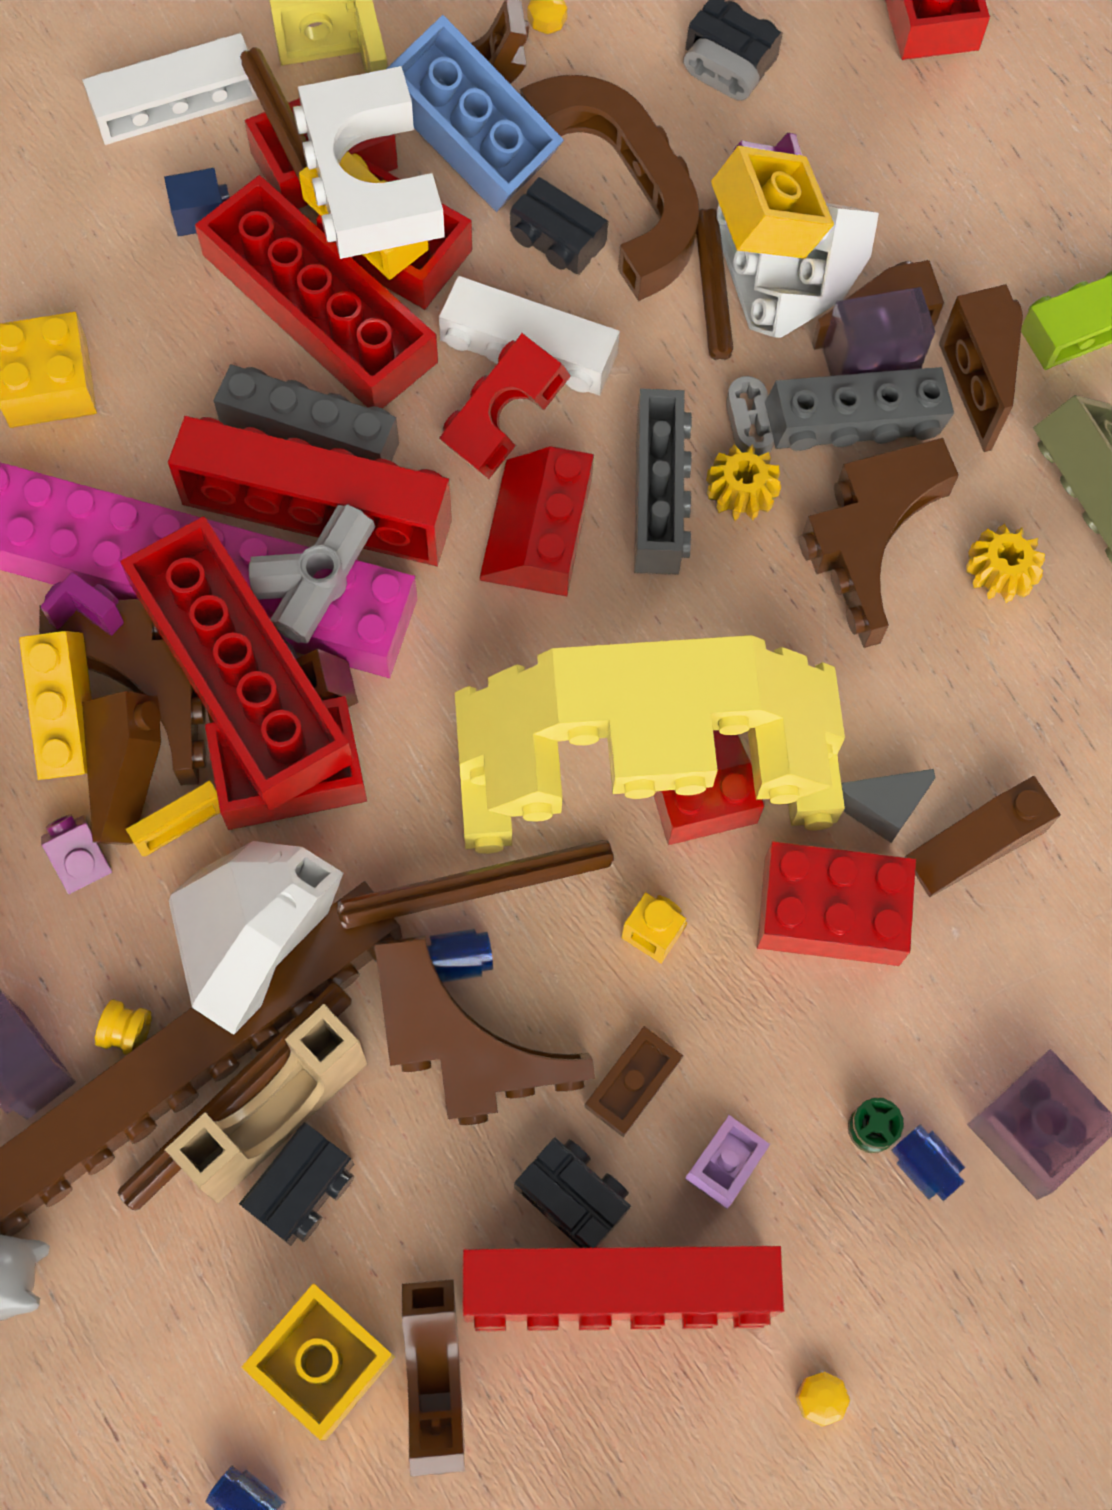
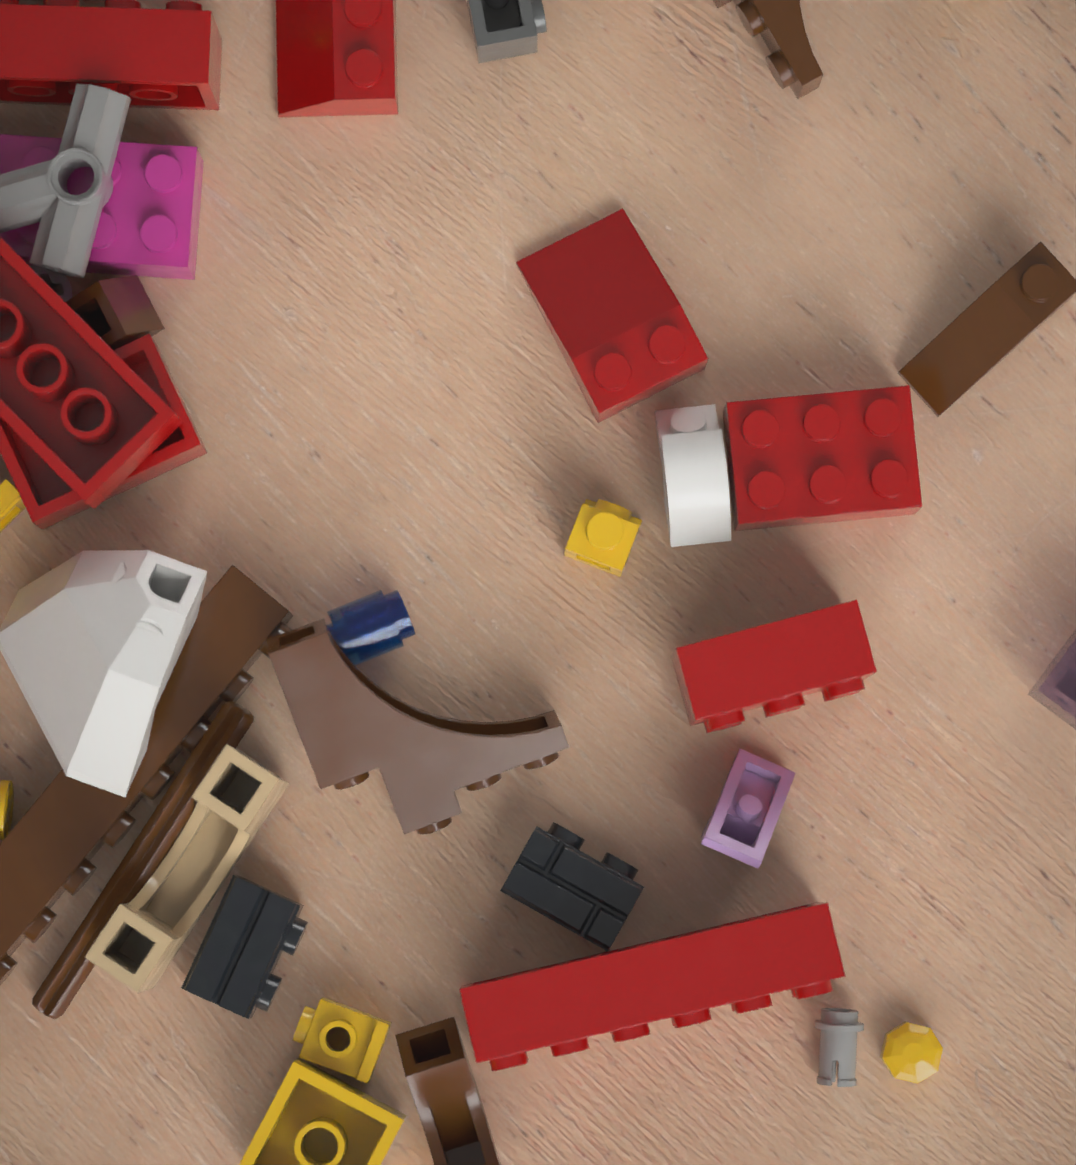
camera: 10 degrees left, 15 degrees up
(375, 1288) = (365, 1032): none -> yellow brick
(474, 884) = (370, 536): reddish brown axle -> none
(633, 1081) = (616, 733): reddish brown plate -> none
(659, 723) = (552, 300): light yellow brick -> none
(735, 896) = (694, 475): none -> white brick
(763, 1375) = (838, 1043): none -> light grey pin
(770, 1050) = (774, 666): none -> red brick
(883, 1119) = (932, 721): dark green wheel -> none
(886, 801) = (861, 310): dark grey slope -> none
(929, 1163) = (990, 754): clear blue brick -> none

